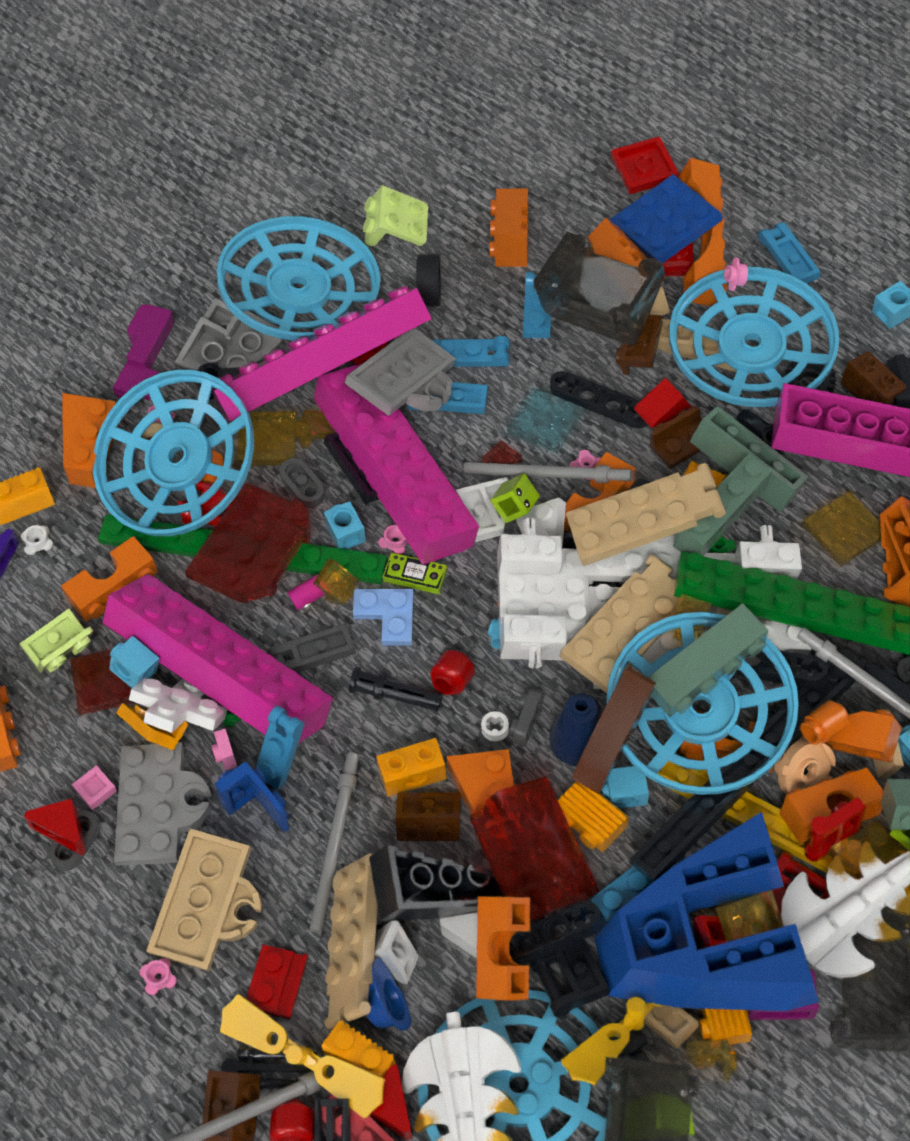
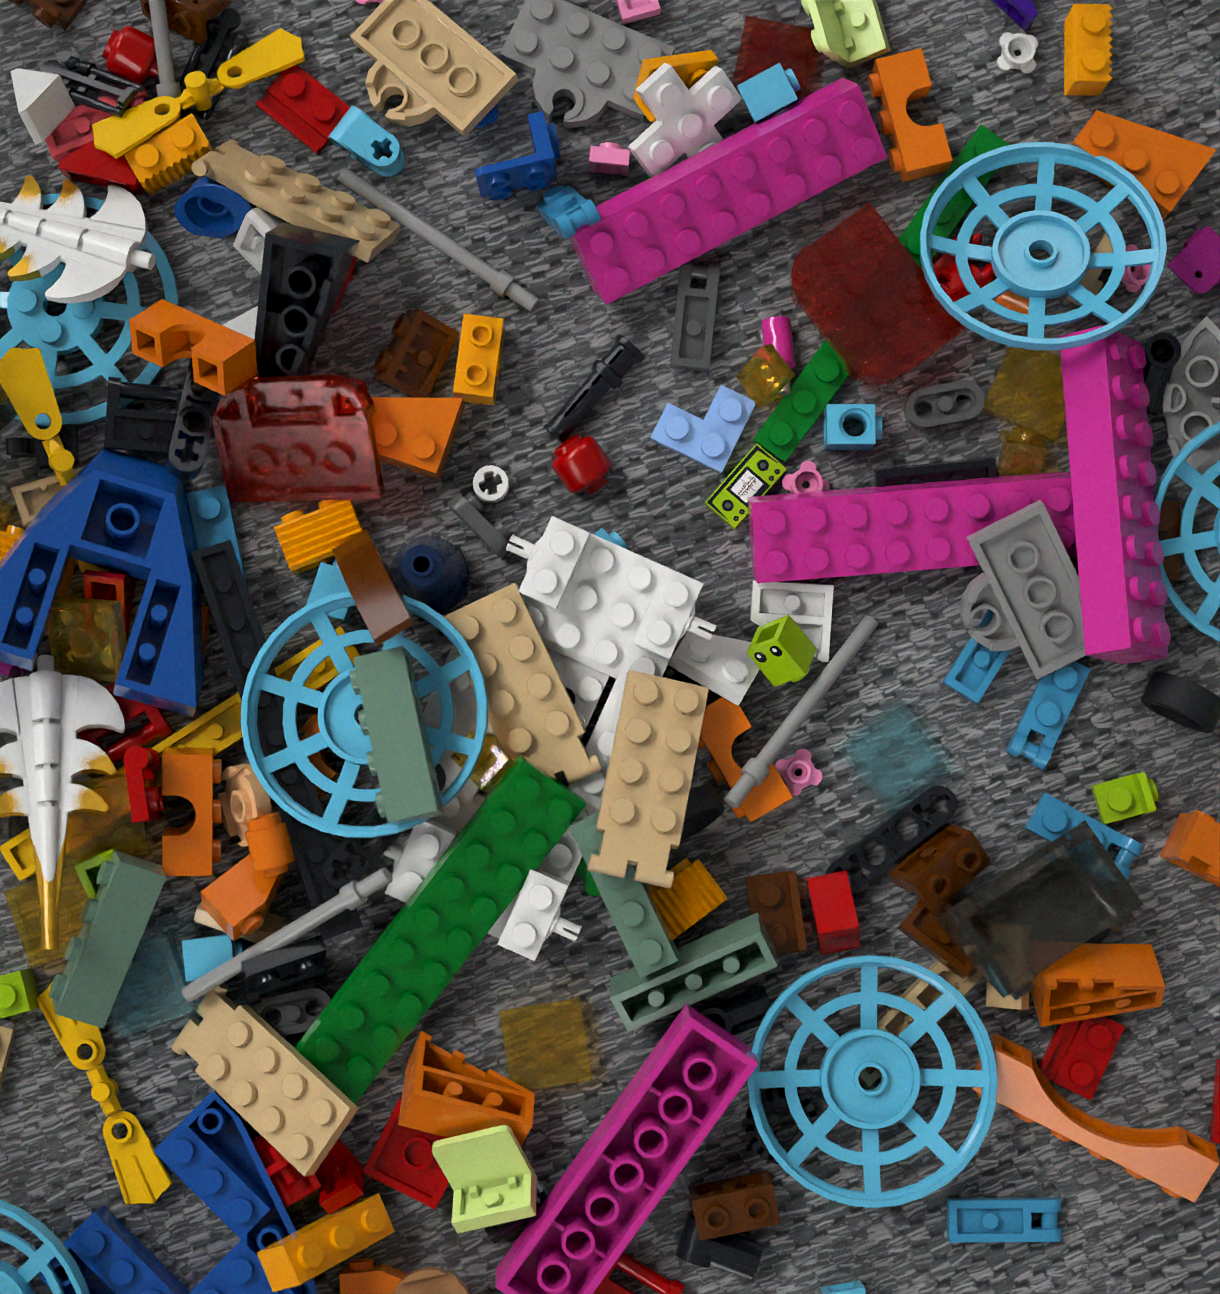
camera: 110 degrees right, 25 degrees up
(282, 921) = (365, 140): none -> medium azure piece
(501, 293) = (1125, 797): none -> lime bracket
(502, 454) = (865, 672): clear red tile -> none
(601, 361) = (941, 866): none -> reddish brown bracket
(667, 219) = (1133, 1076): blue plate -> none
(736, 274) = (971, 1104): bright pink plate -> none

